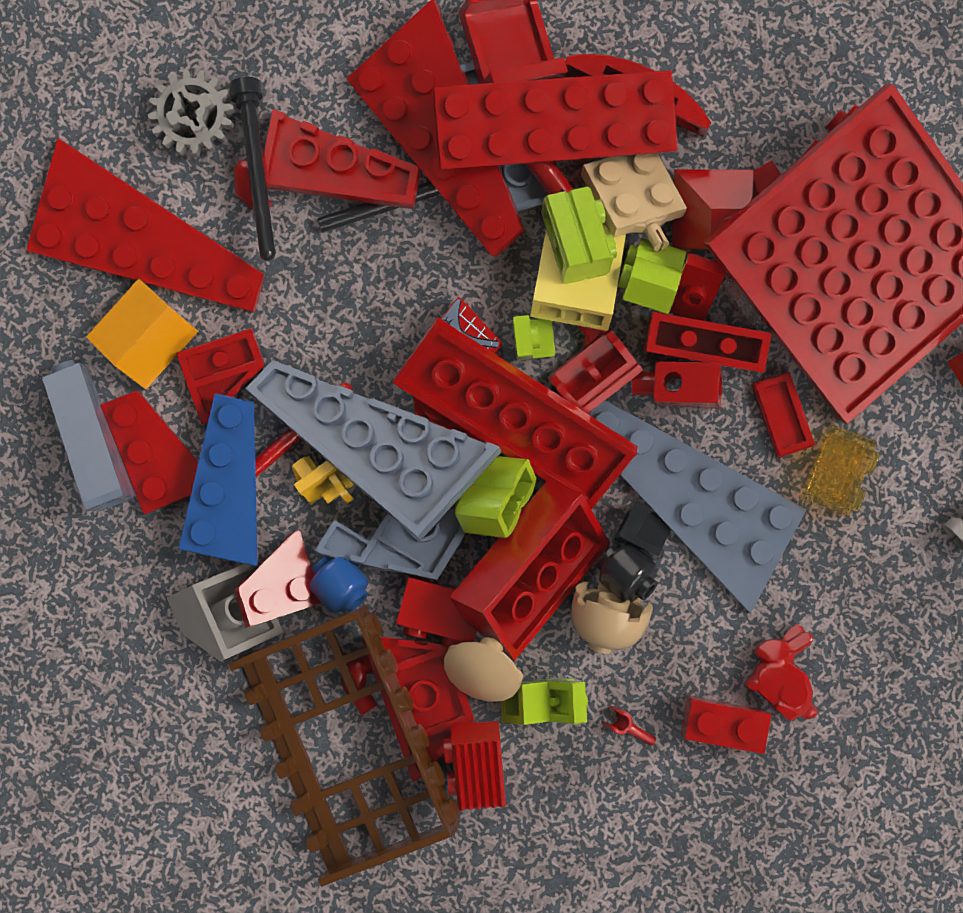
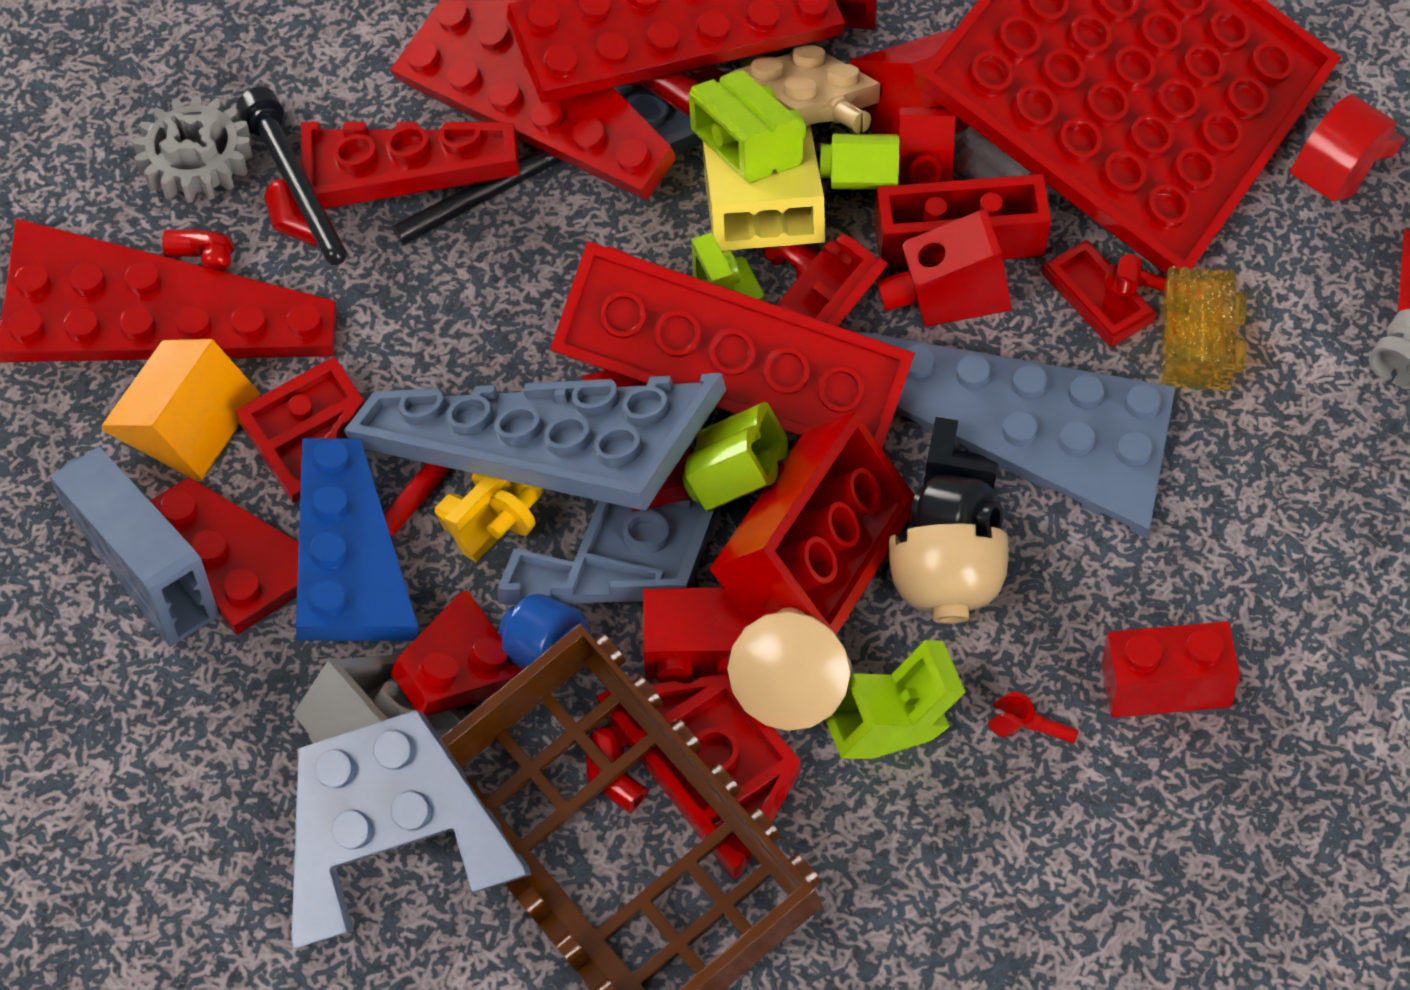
camera: 15 degrees left, 30 degrees down
(184, 196) = (209, 245): none -> red arm
(206, 686) = (376, 795): none -> wing
(477, 765) = (822, 809): red brick -> none
(780, 678) = (1231, 594): red animal -> none
(803, 417) = (1126, 277): none -> red hand

